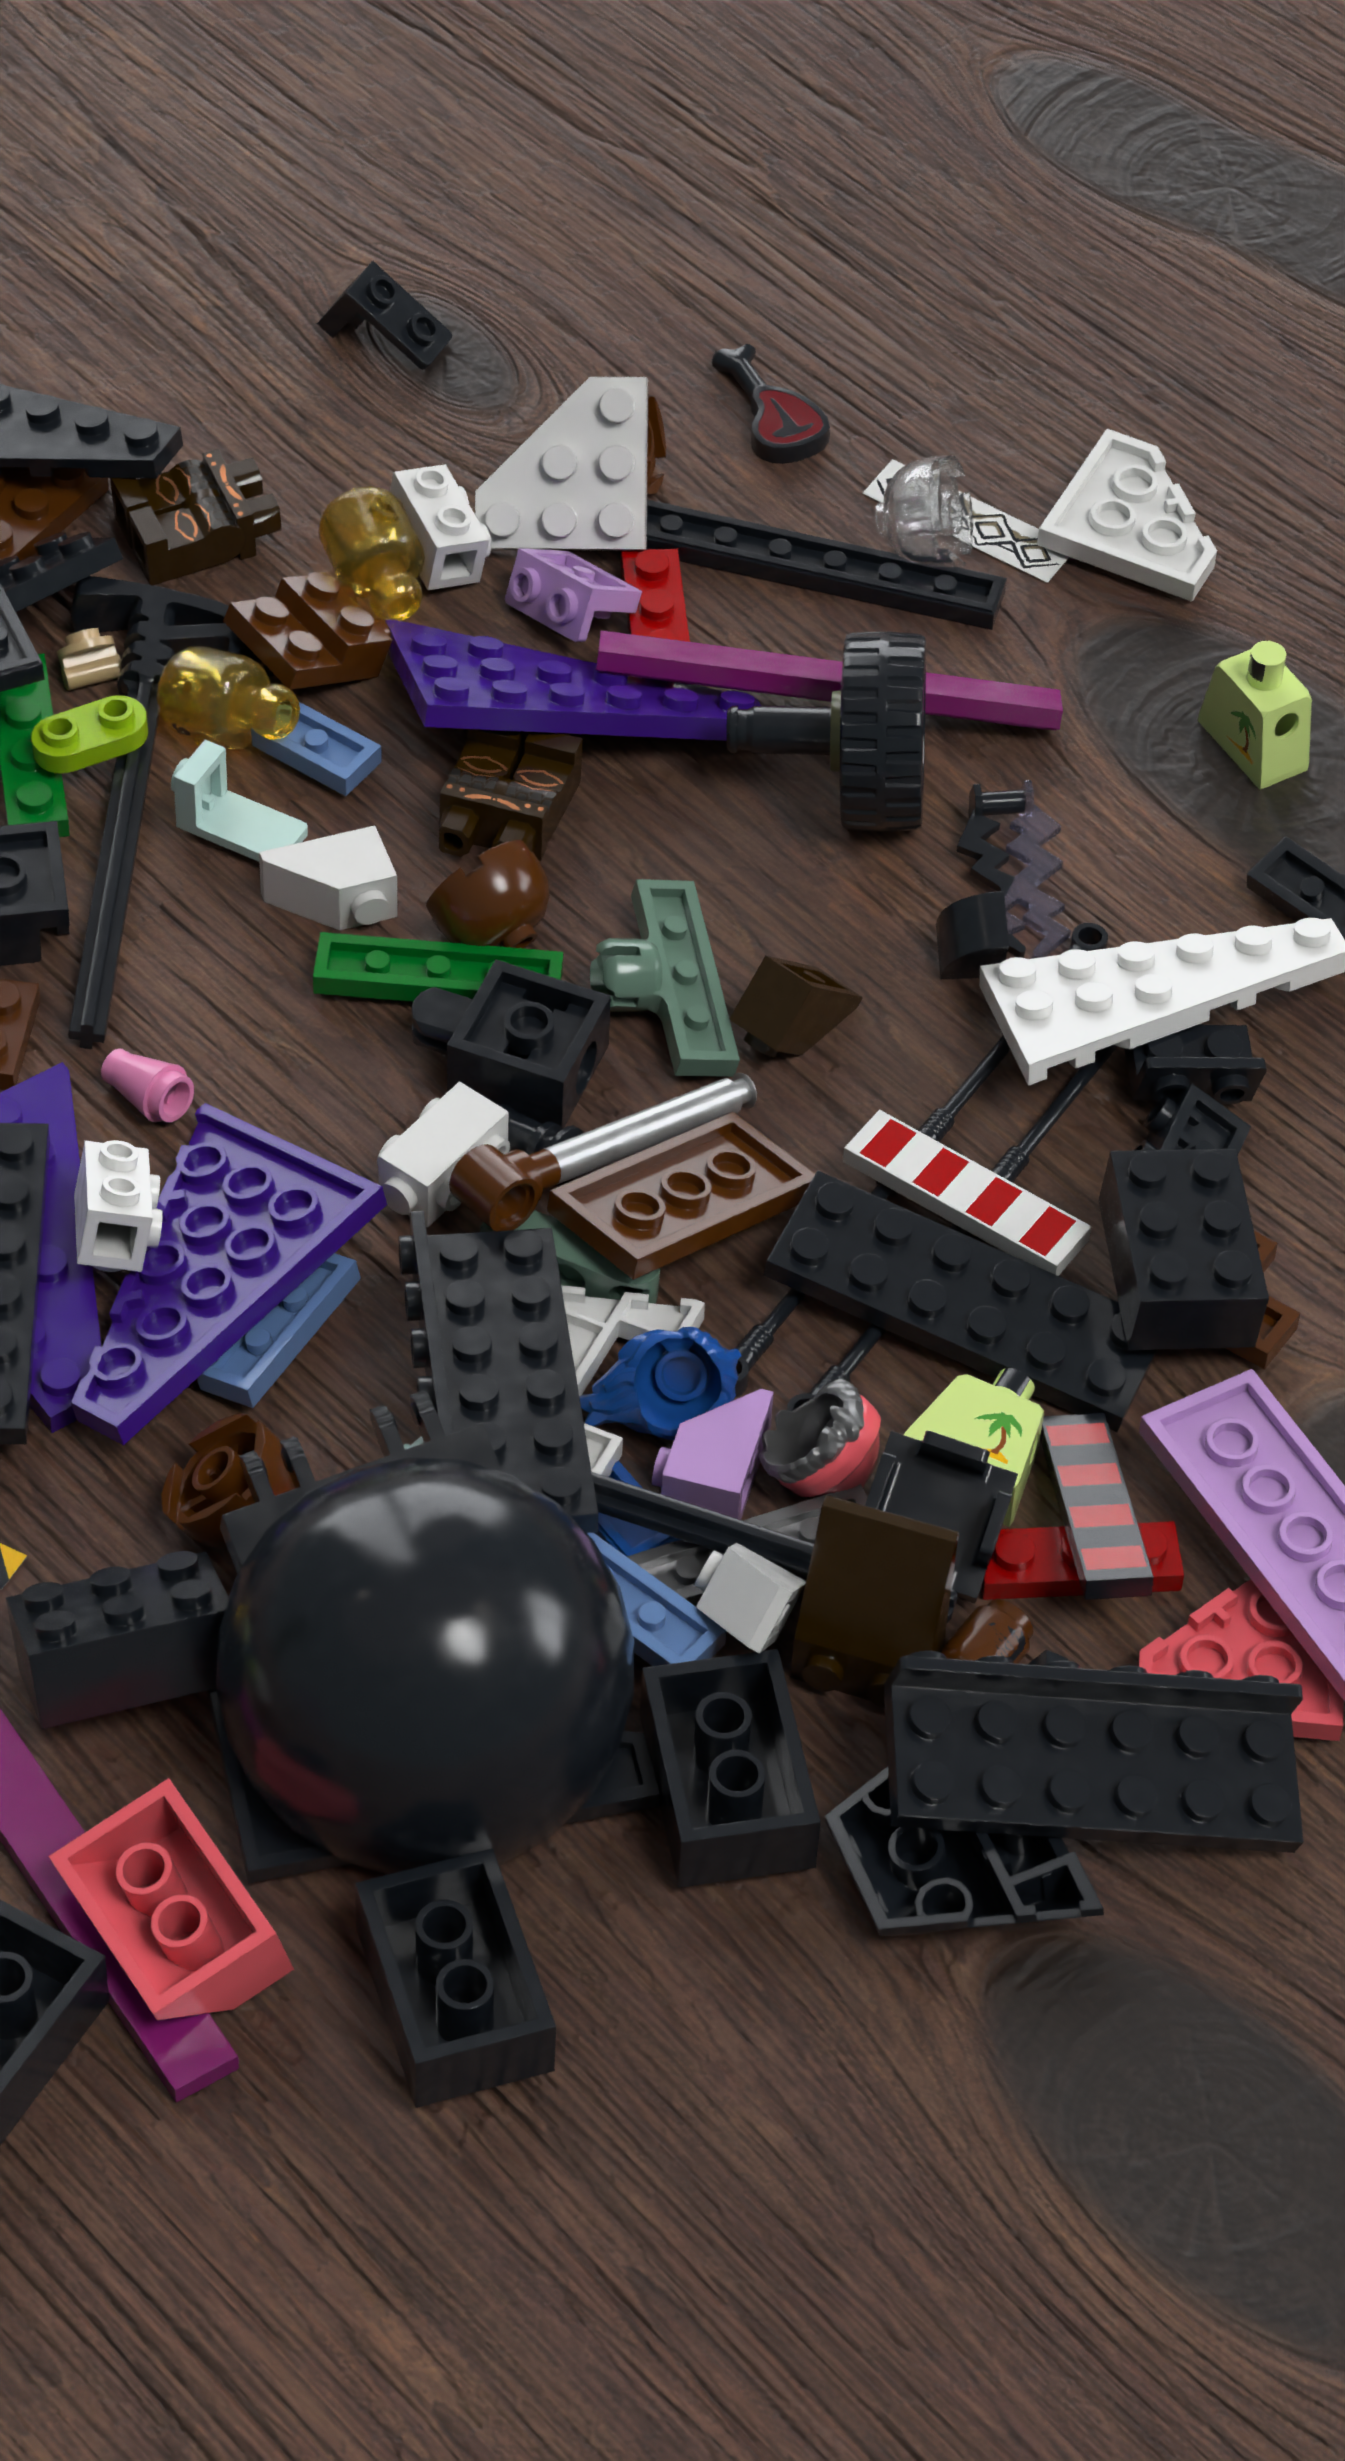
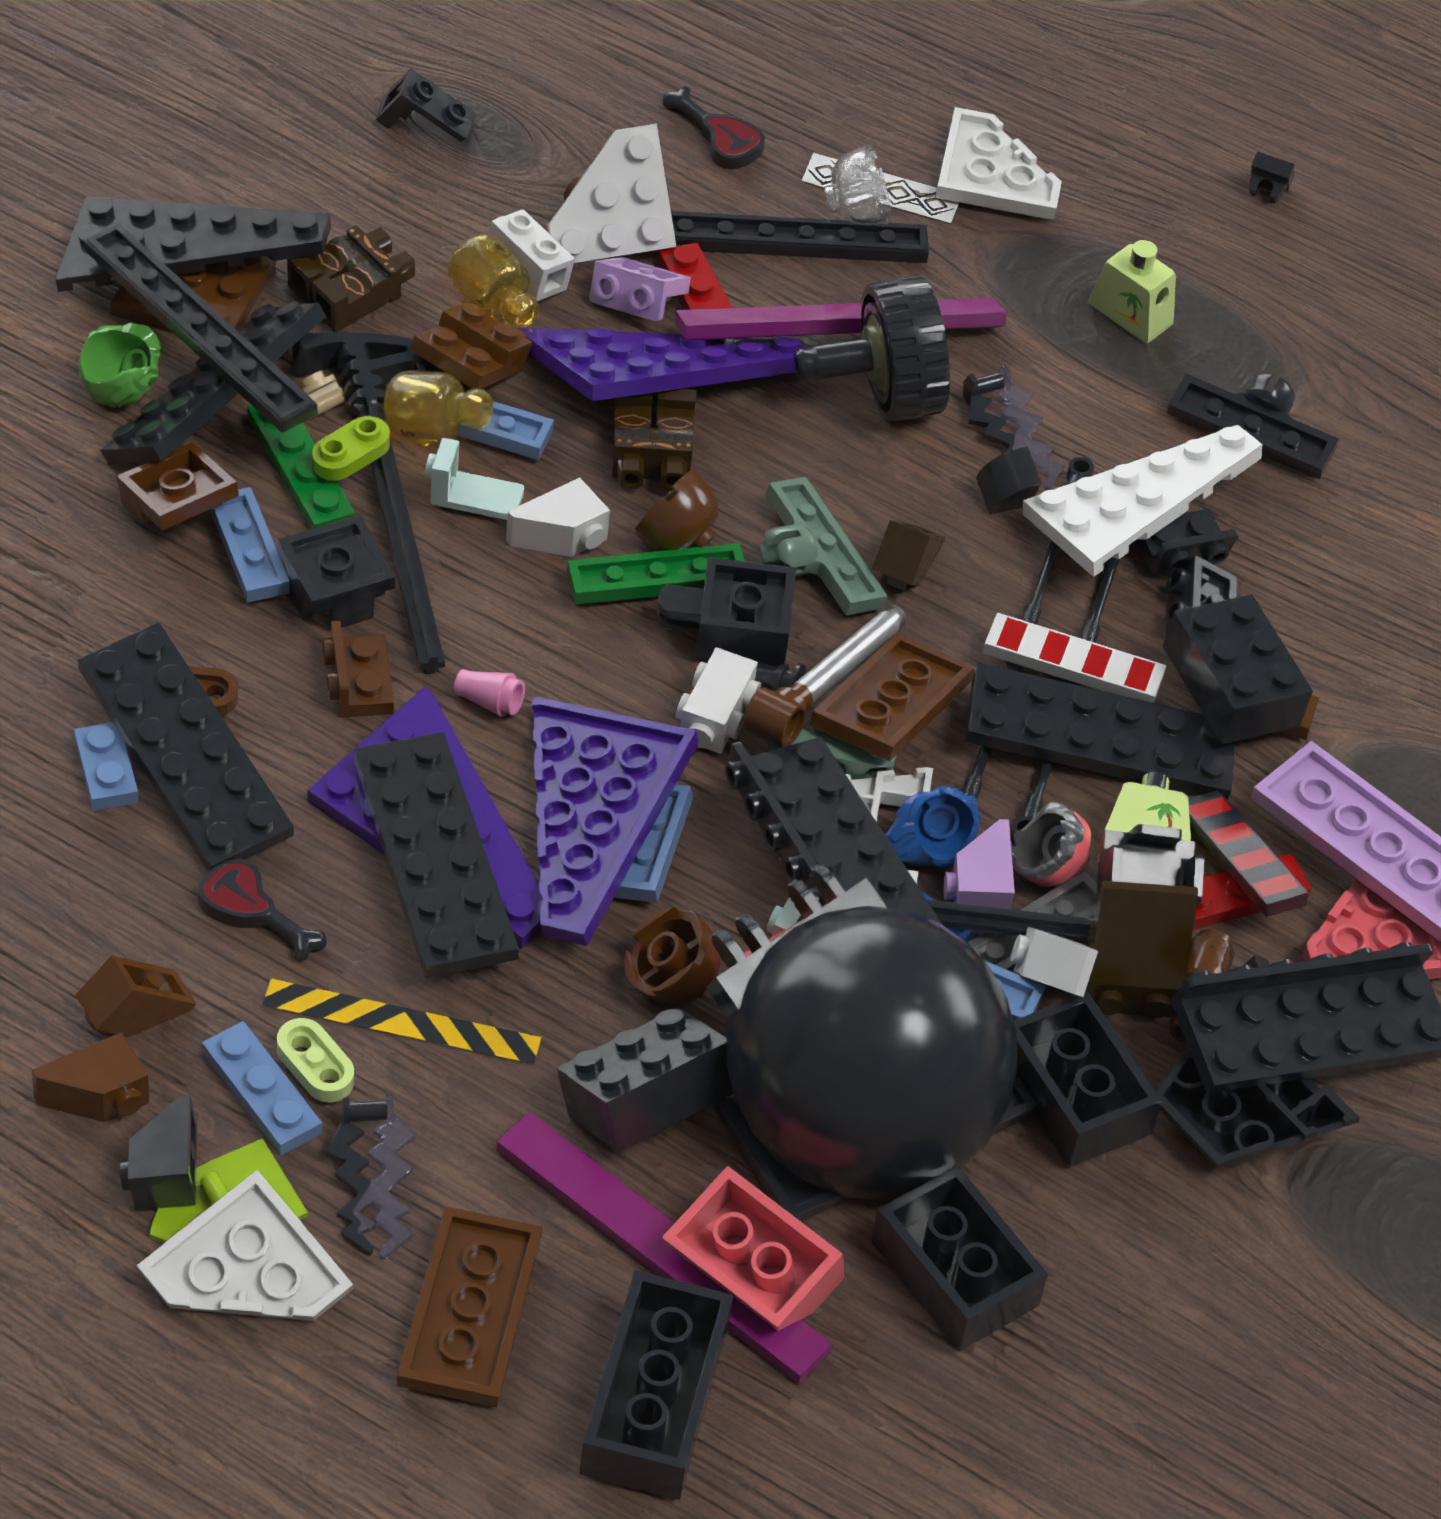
camera: 20 degrees left, 0 degrees up
(116, 1206) = (516, 781): white brick -> none

